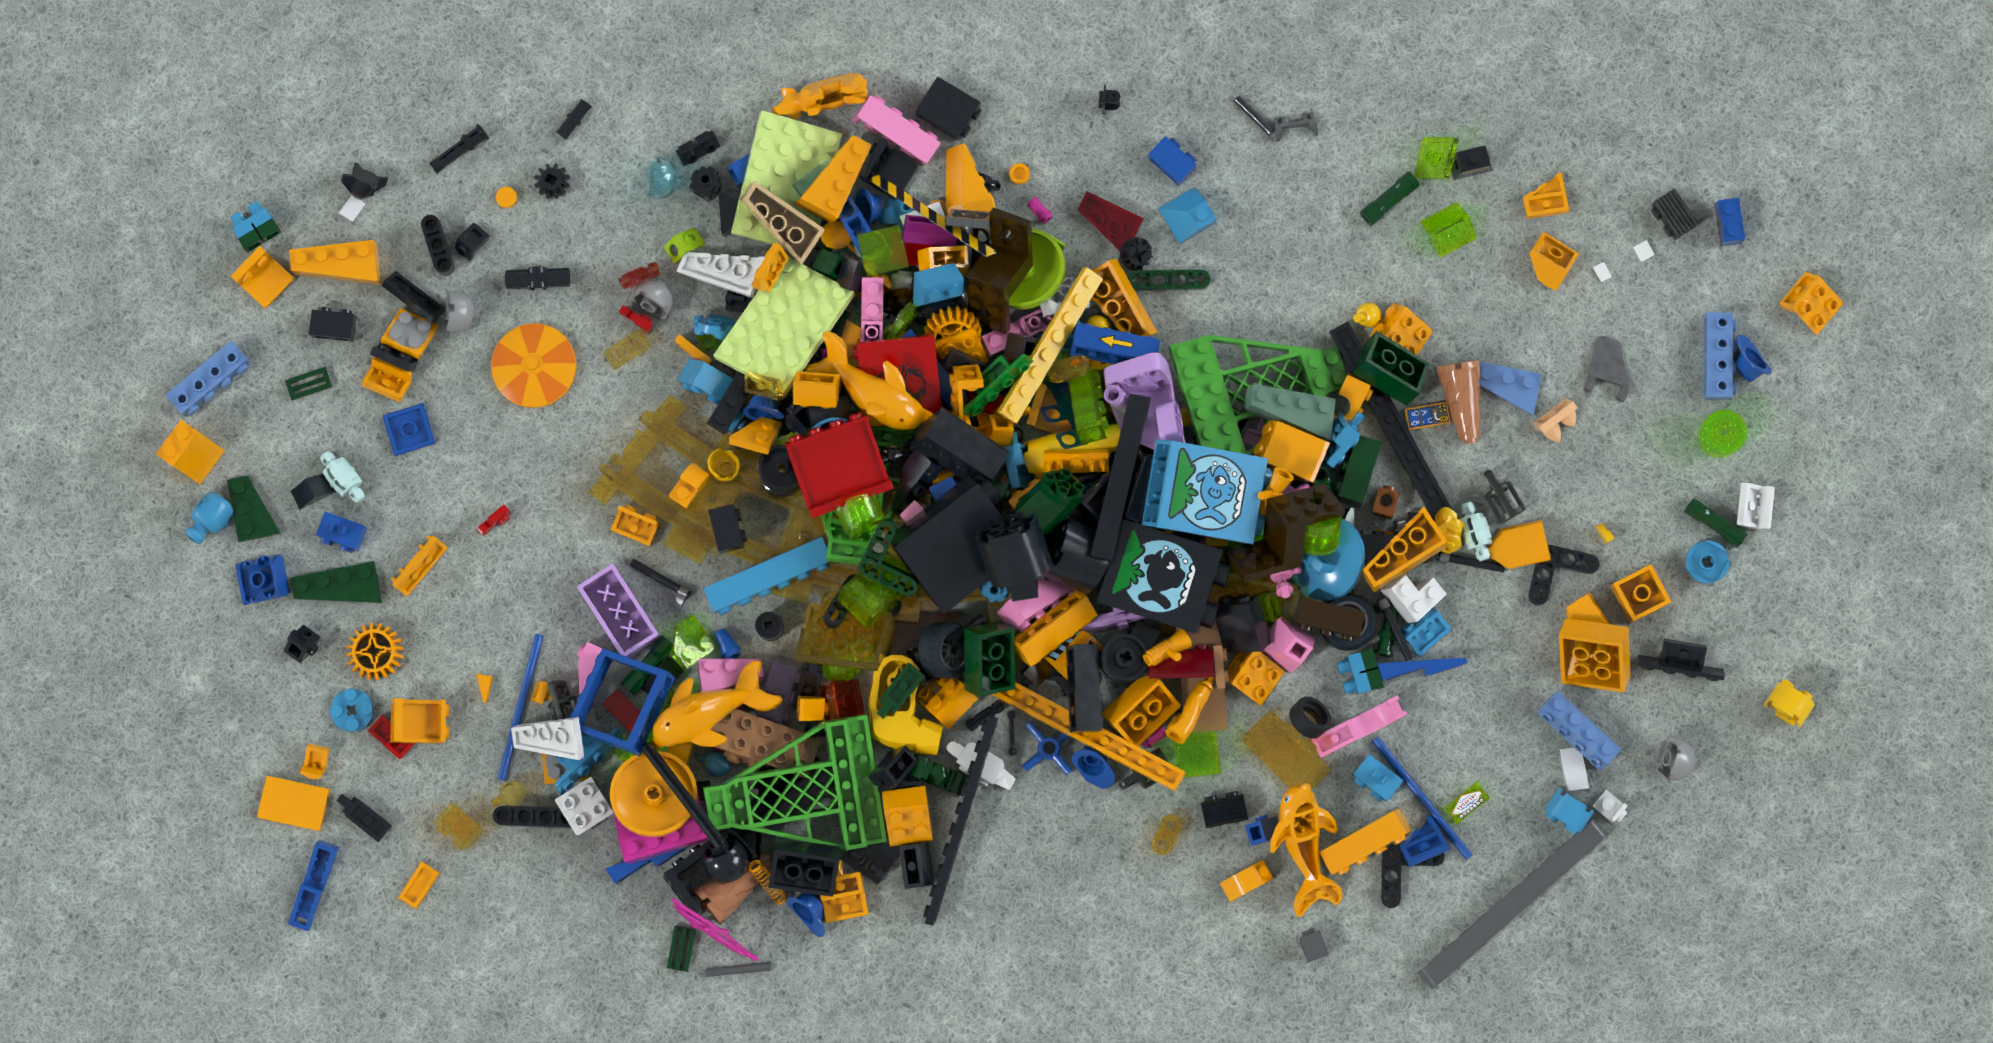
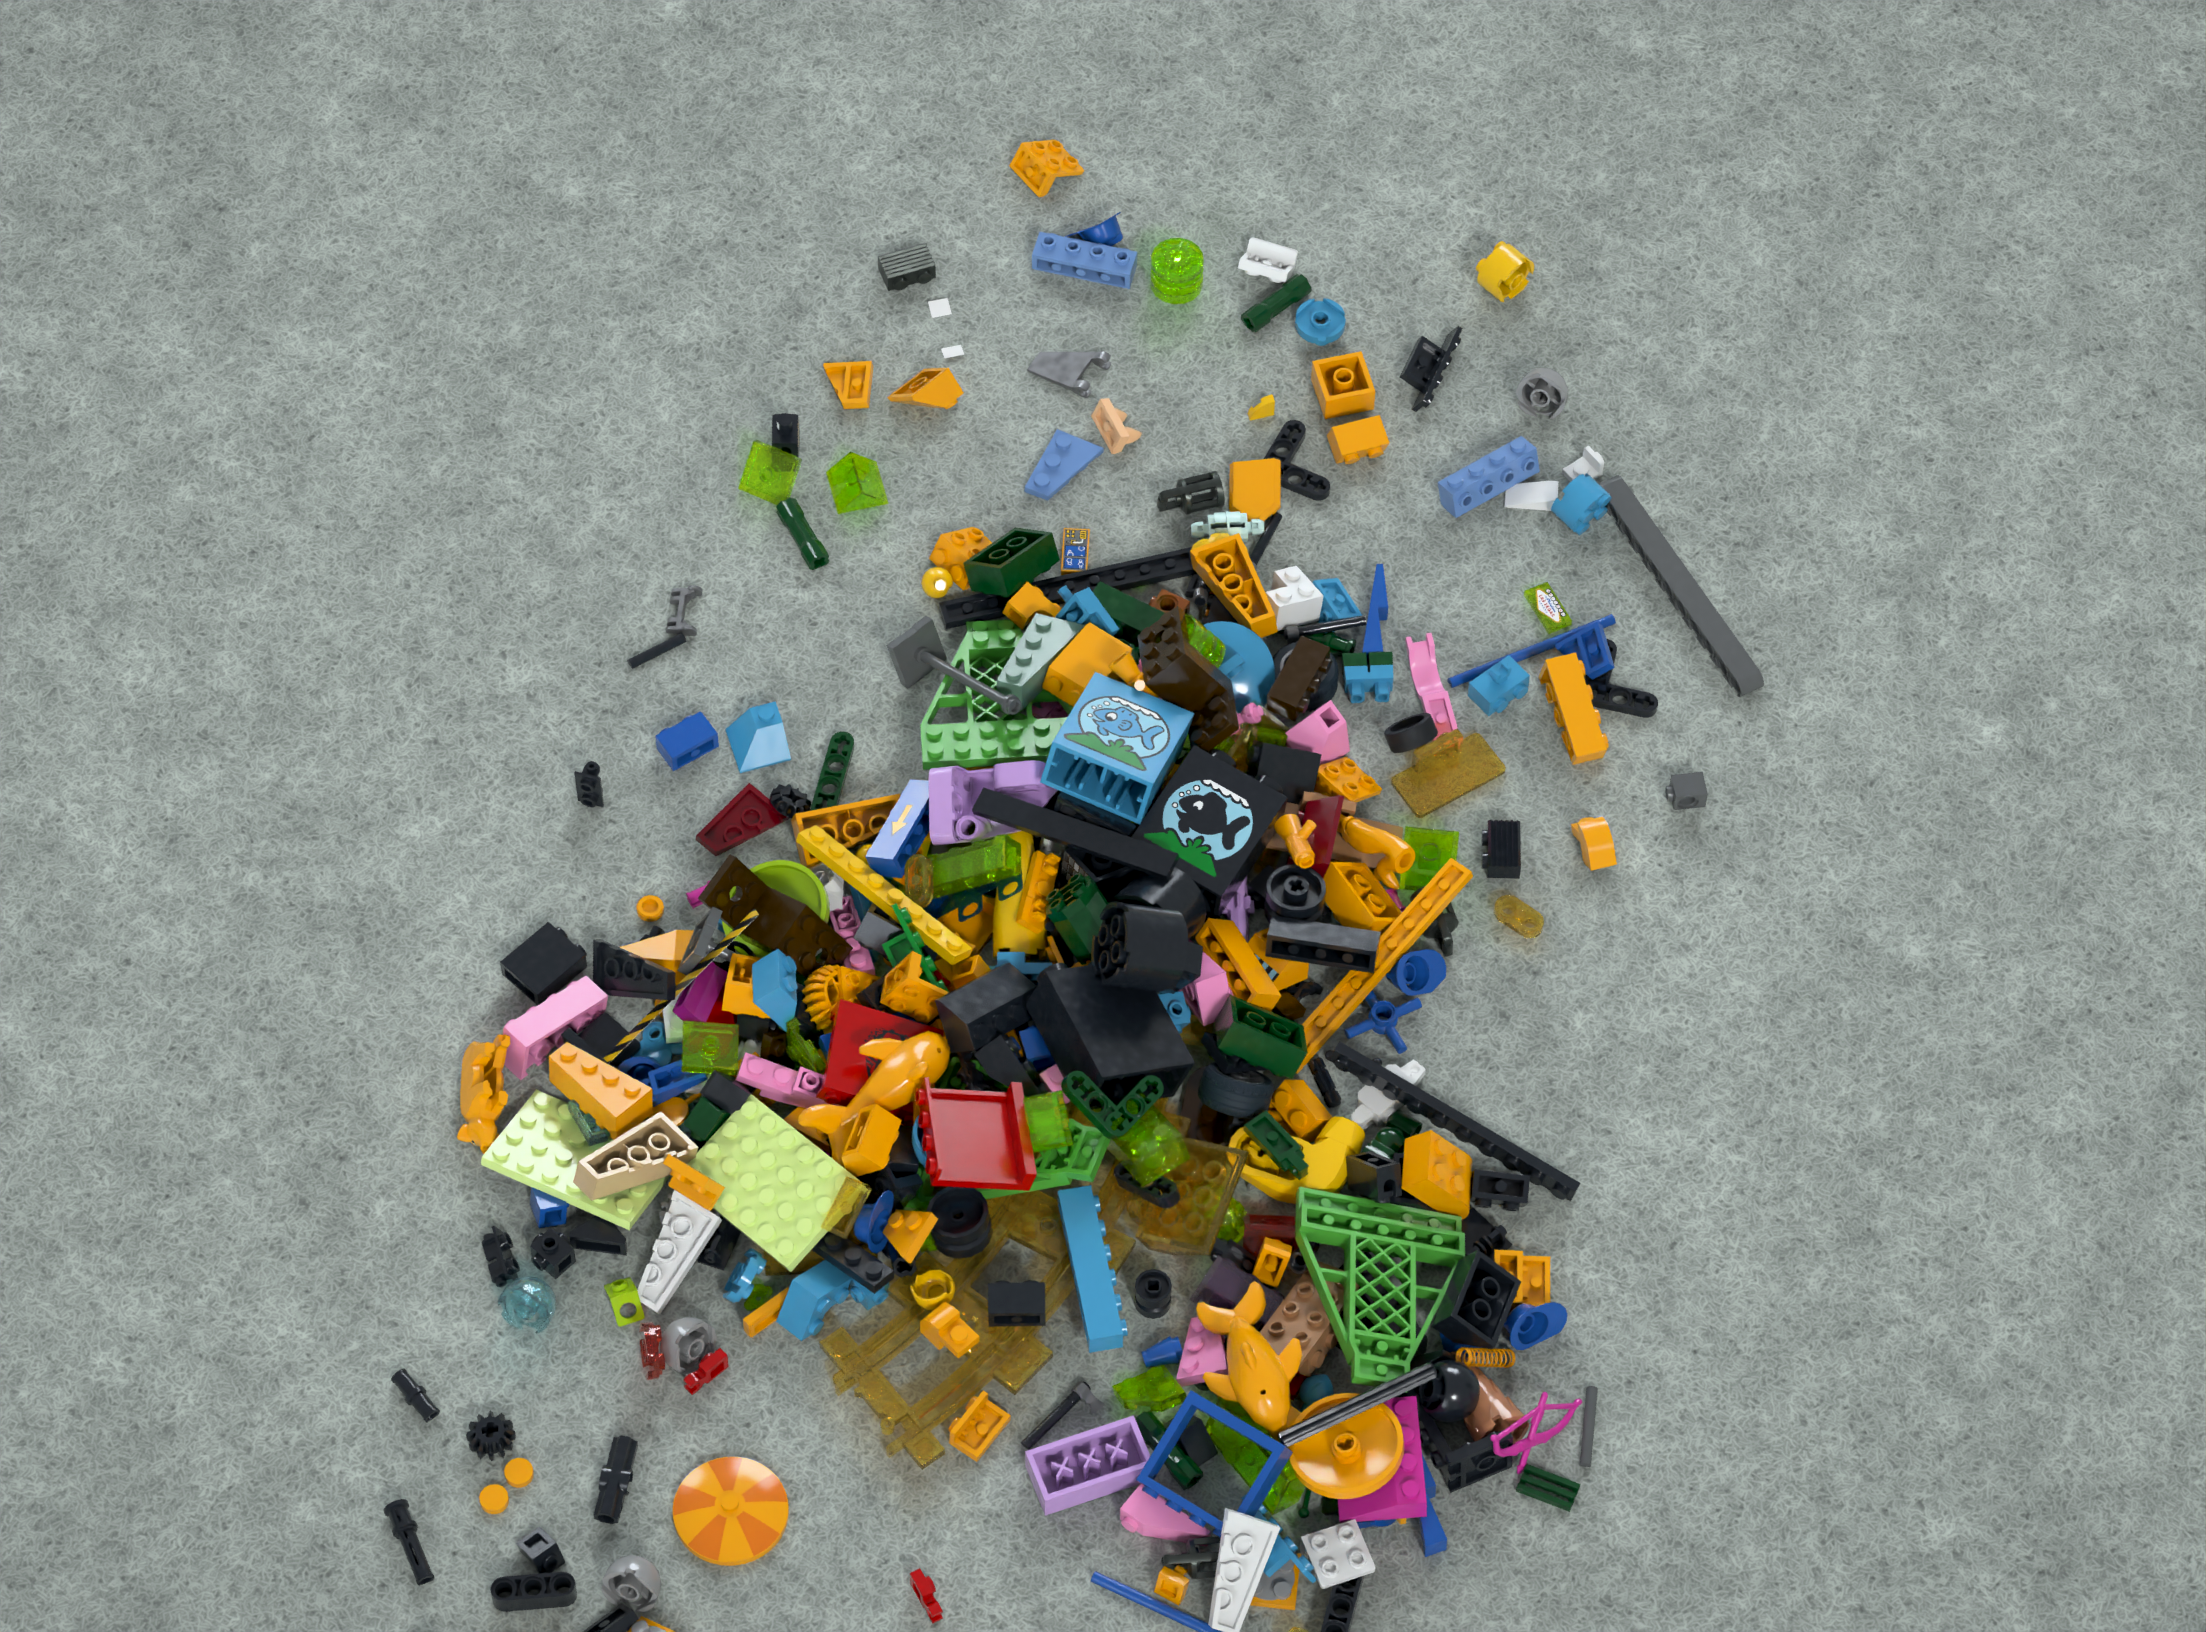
camera: 85 degrees left, 25 degrees down
(530, 209) = (518, 1472): none -> light orange tile
(622, 709) = (1220, 1492): red tile -> none
(624, 342) = (737, 1371): clear yellow slope -> none
(939, 174) = (630, 975): none -> black wing
(1261, 830) = (1536, 810): blue brick -> none
(1290, 317) = (921, 651): none -> dark grey tile
(1300, 830) = (1542, 766): light orange animal -> none
(1462, 395) = (1060, 505): nougat cone -> none
(1594, 655) = (1405, 435): light orange slope -> none
(1729, 222) = (932, 216): blue brick -> none

